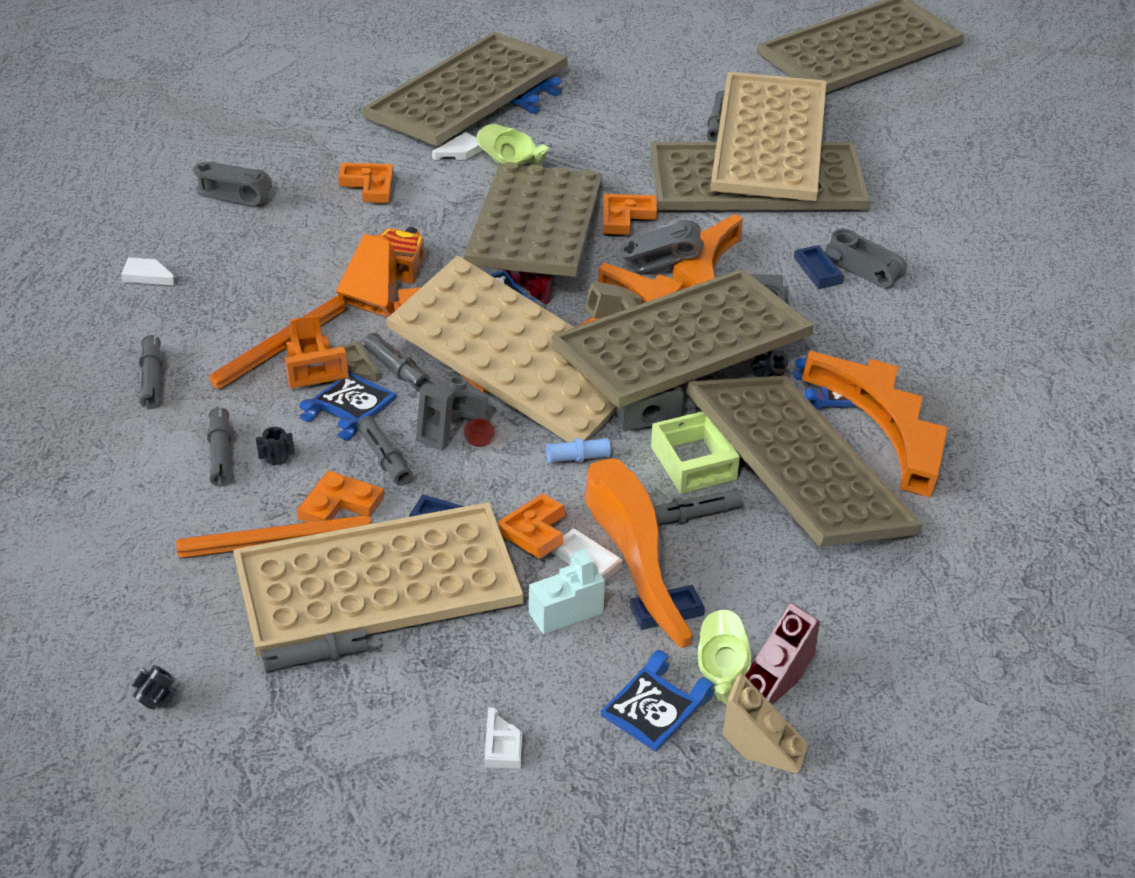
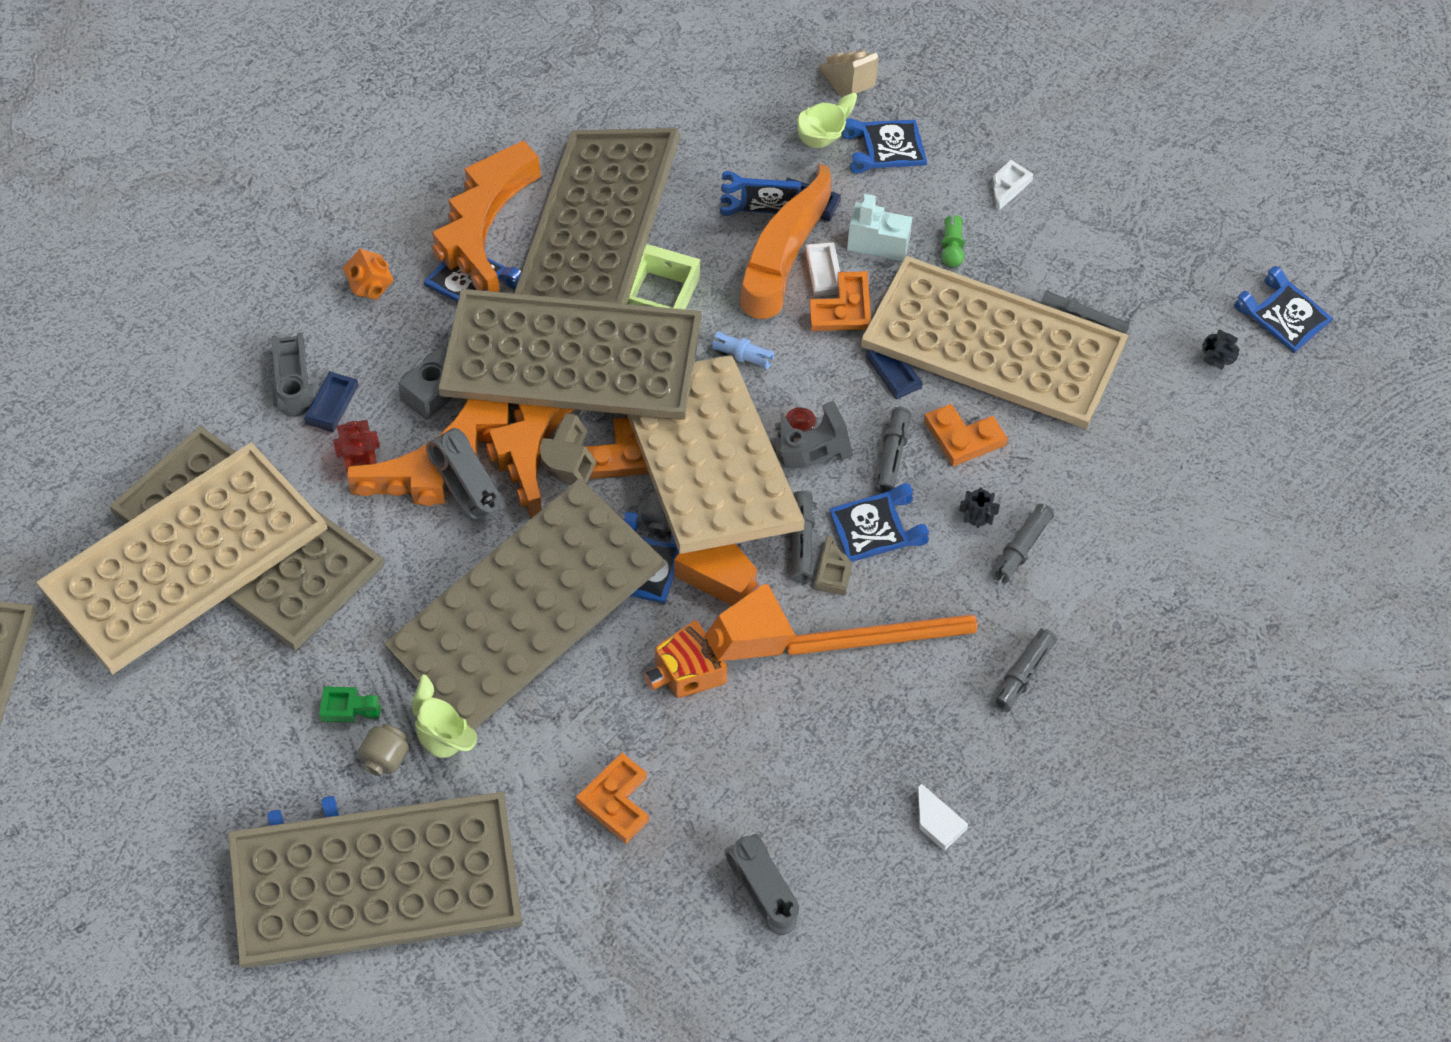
camera: 140 degrees left, 15 degrees up
(111, 783) = (1286, 313): none -> flag
(239, 539) = (1042, 431): orange axle -> none
(310, 347) = (878, 567): orange tile -> none
(460, 147) = (472, 785): white tile -> none
(497, 641) = (953, 242): none -> bright green pin
(535, 125) = (383, 750): none -> dark tan head
(583, 138) = (342, 704): none -> green plate
(621, 208) = (425, 582): orange plate -> none
(681, 509) = (715, 251): dark grey pin -> none
(692, 549) = (756, 194): none -> flag
(713, 123) = (174, 645): dark grey pin -> none
(758, 239) = (356, 443): none -> clear red brick
(785, 654) = (782, 97): slope -> none
(913, 334) = (368, 274): none -> orange brick

